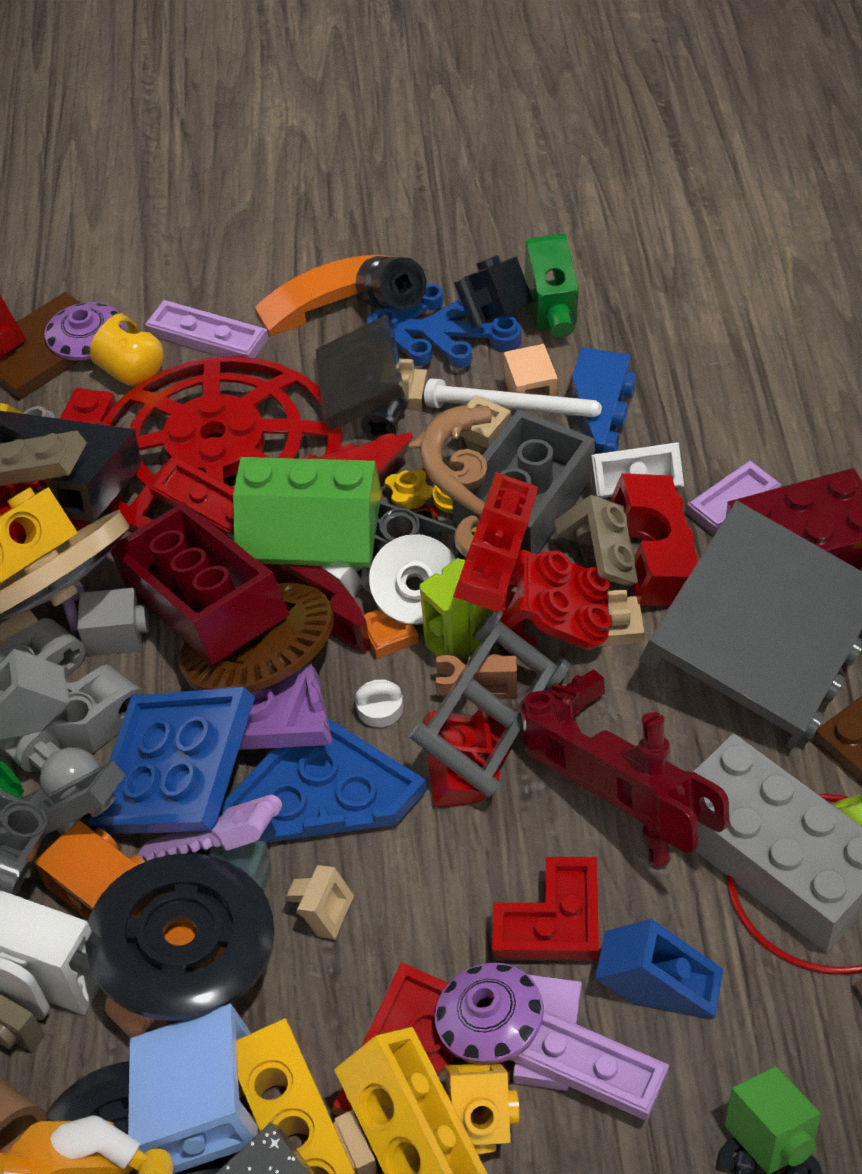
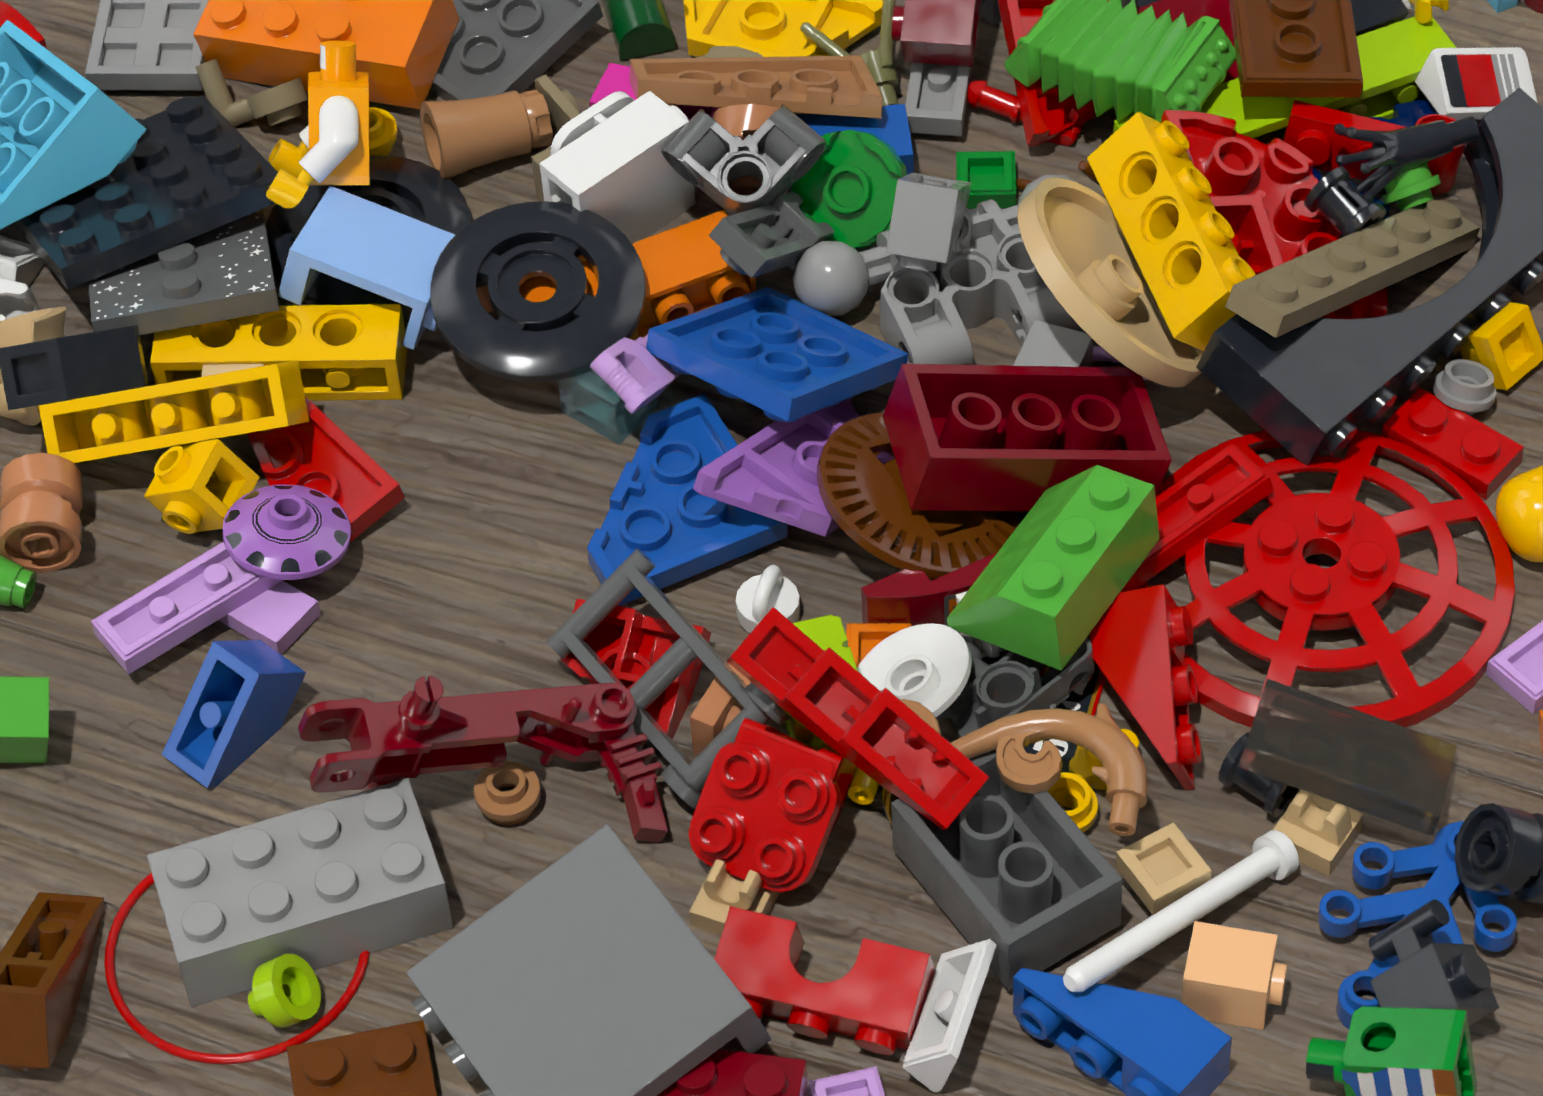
camera: 115 degrees right, 0 degrees up
(322, 900) = (524, 450): tan tile -> none
(561, 926) = (355, 648): red plate -> none
(605, 527) = (844, 902): dark tan bracket -> none

